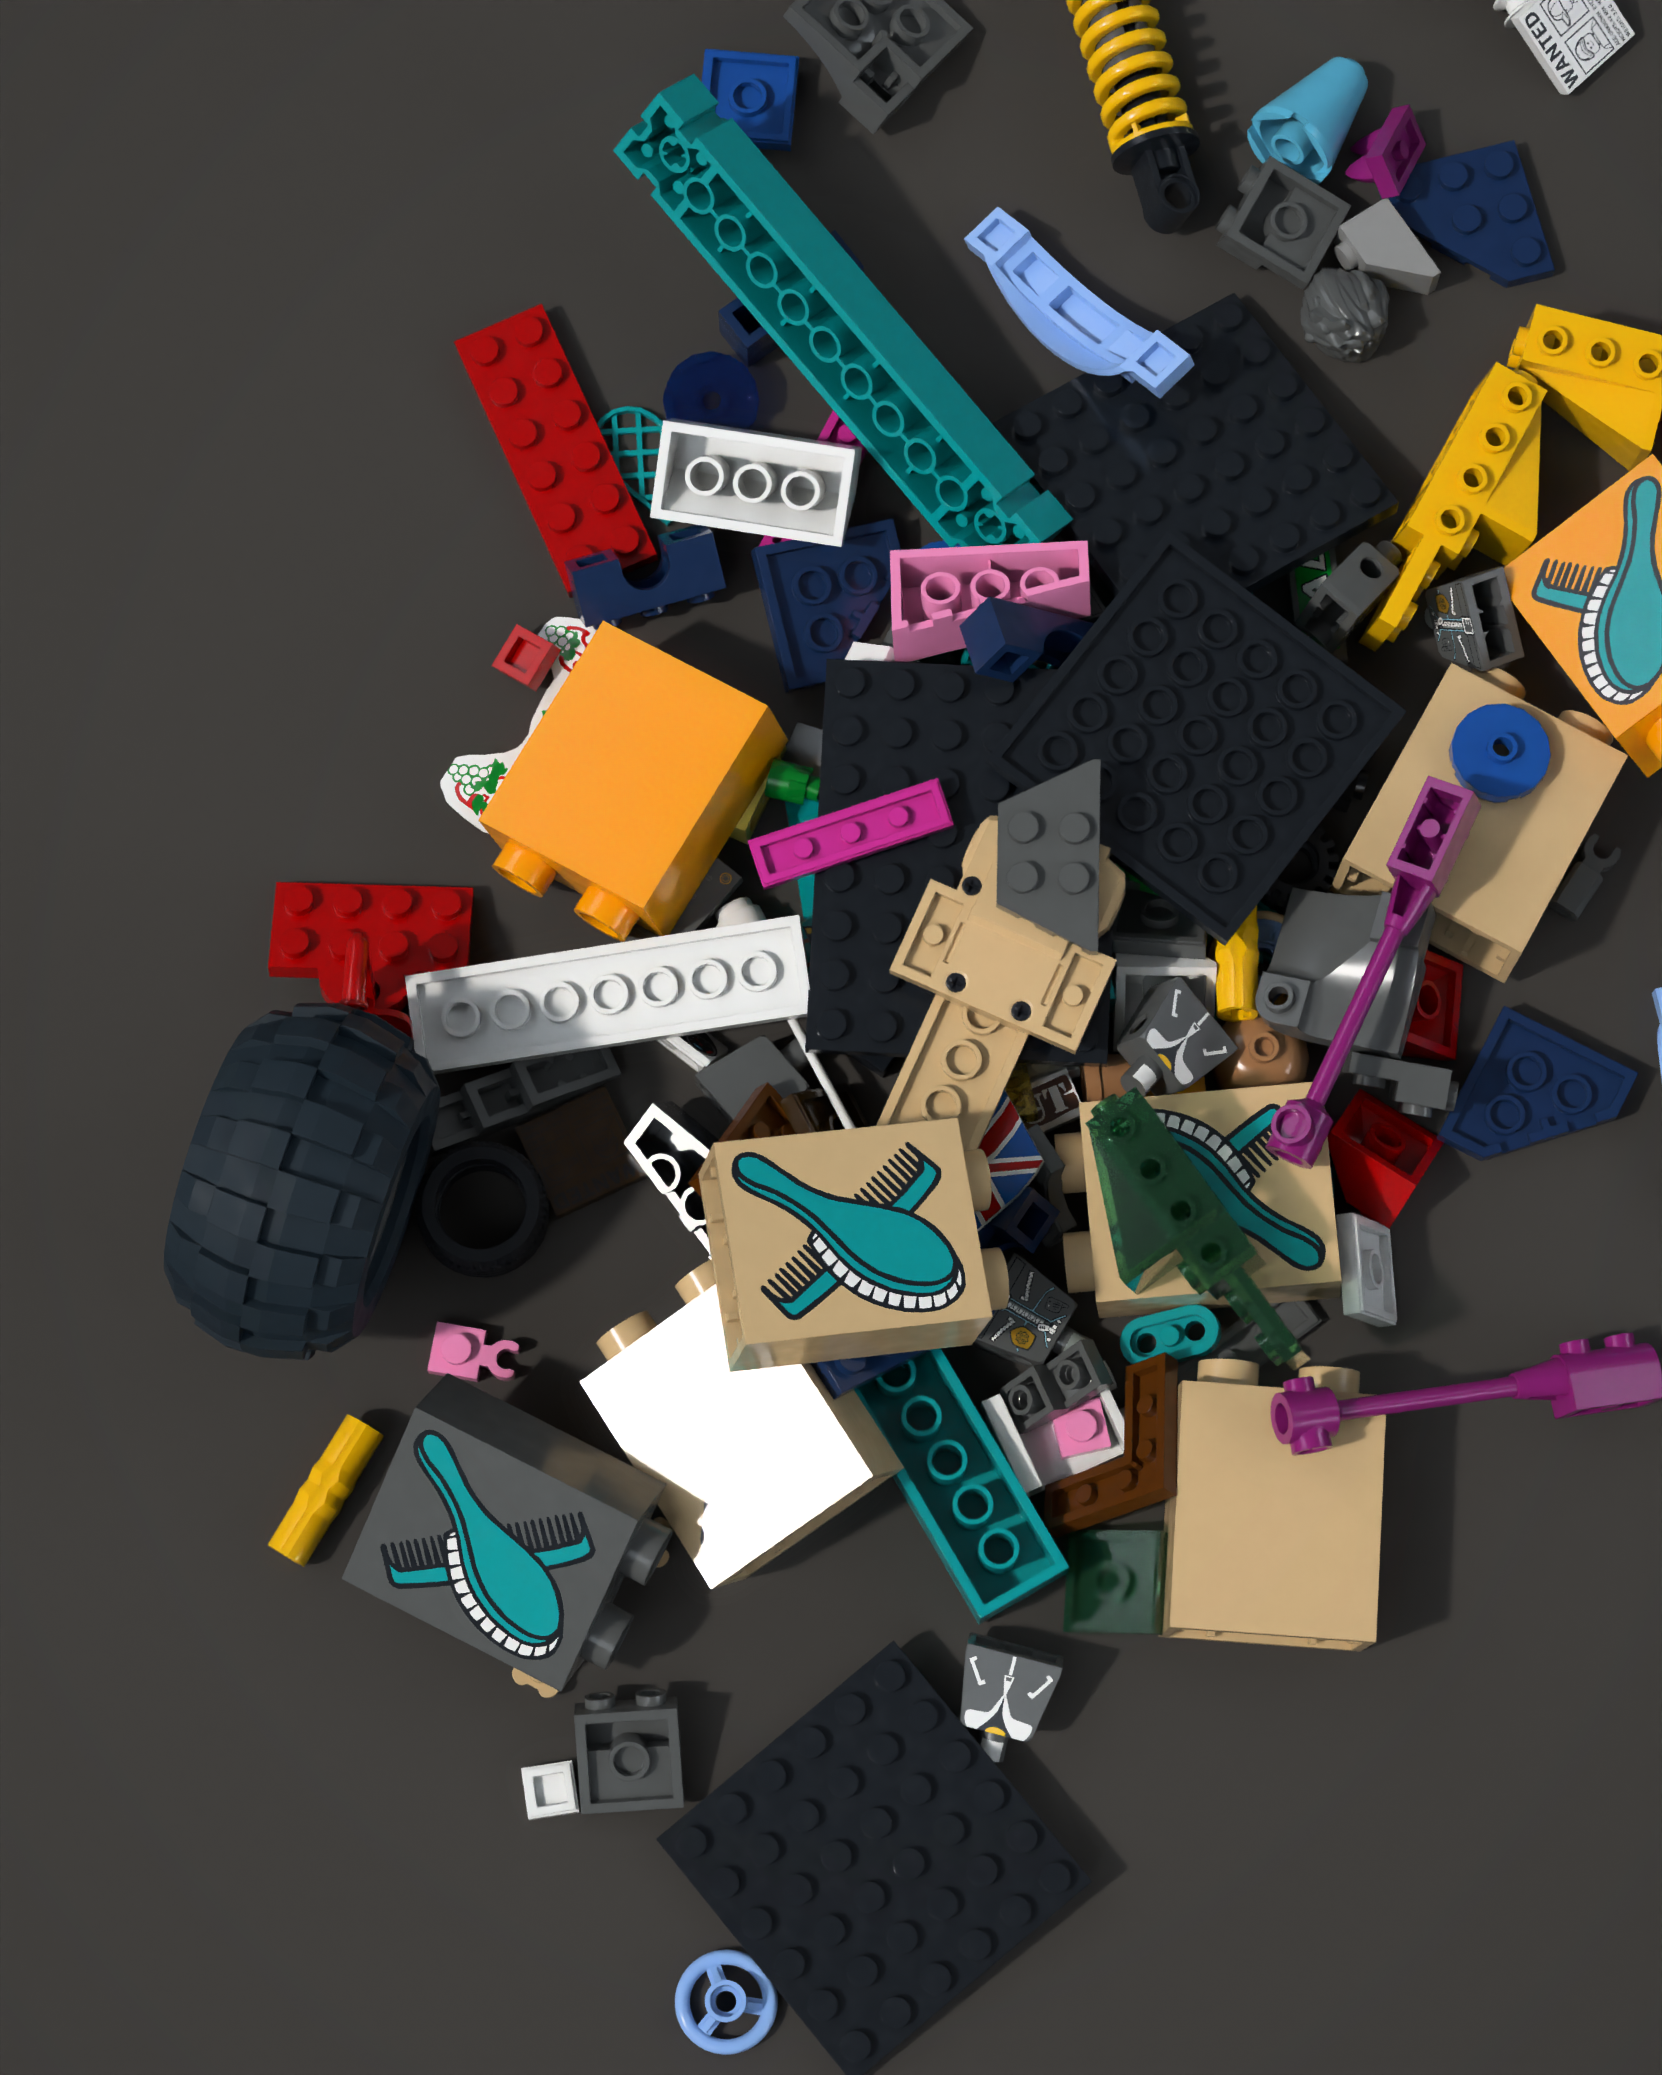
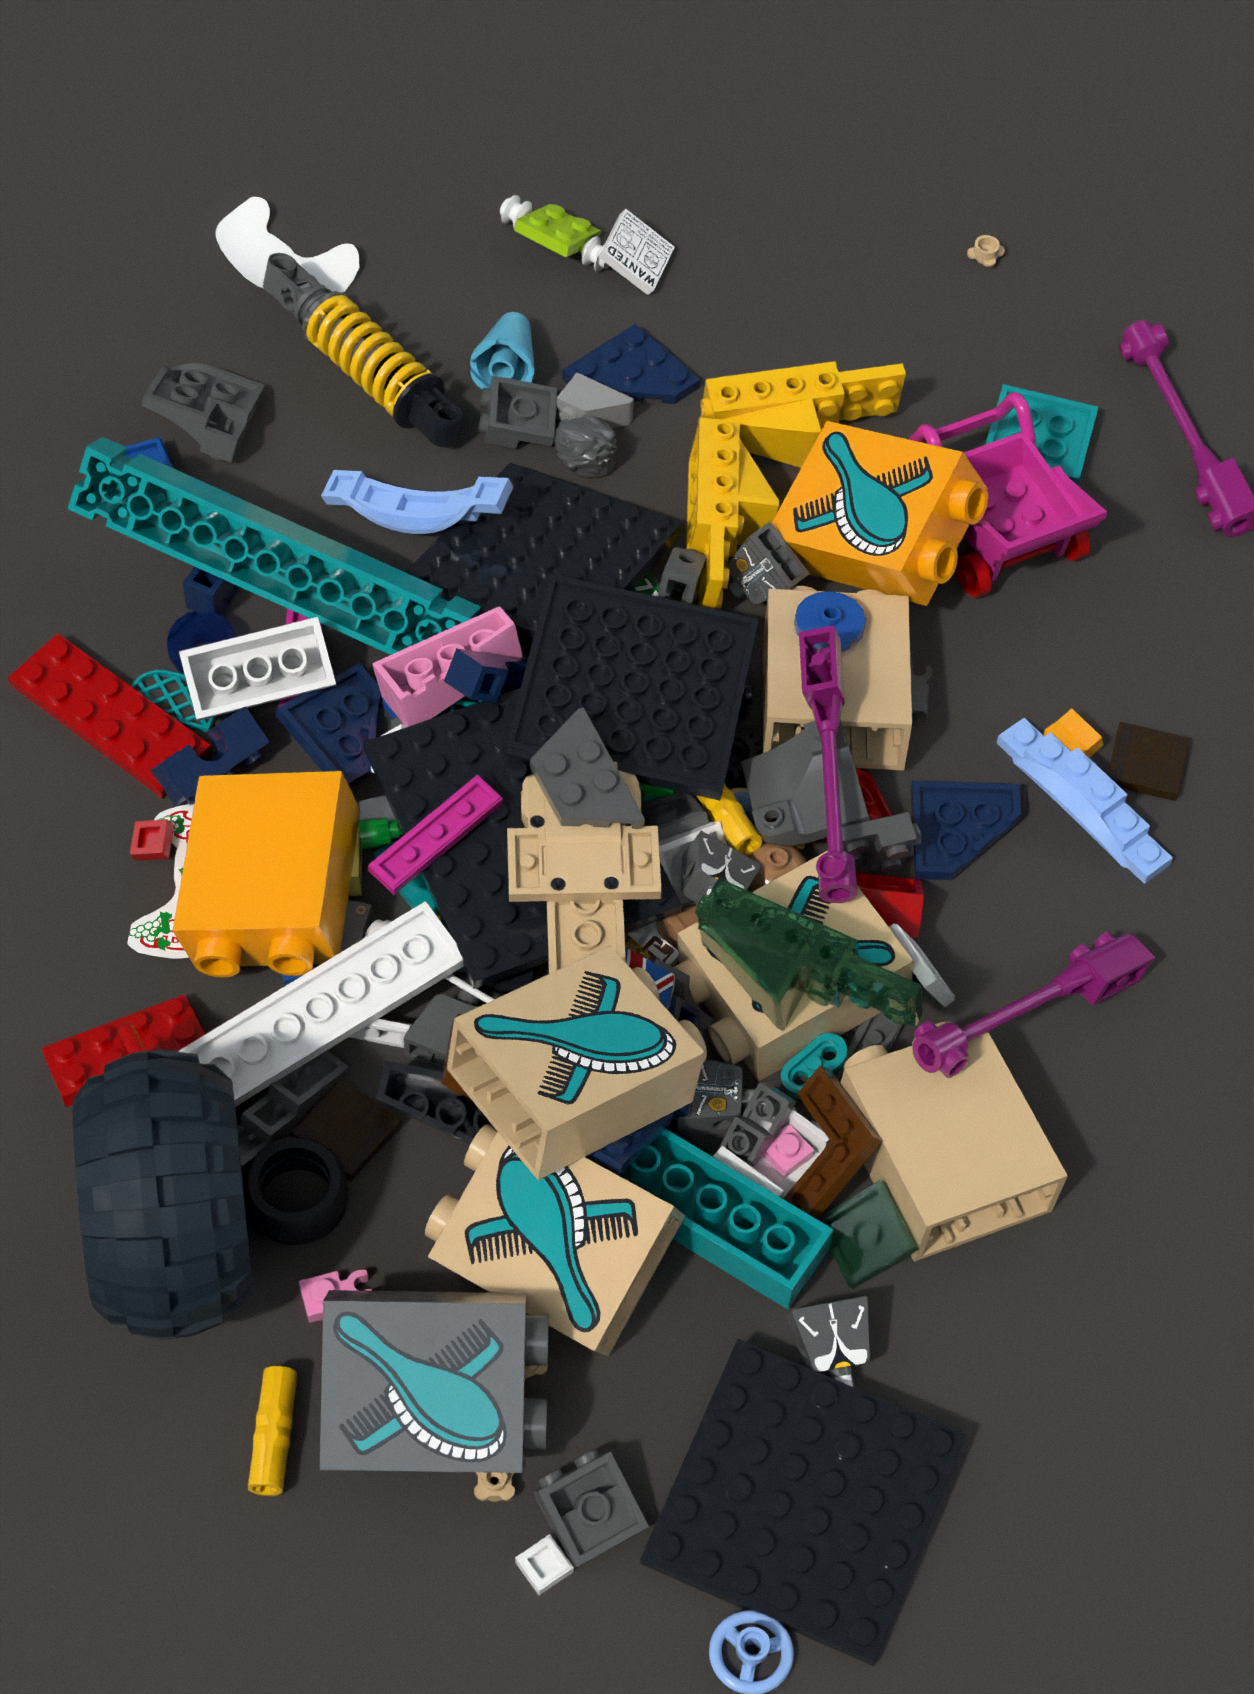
camera: 30 degrees left, 20 degrees down
(1389, 153) = (562, 353): magenta tile -> none

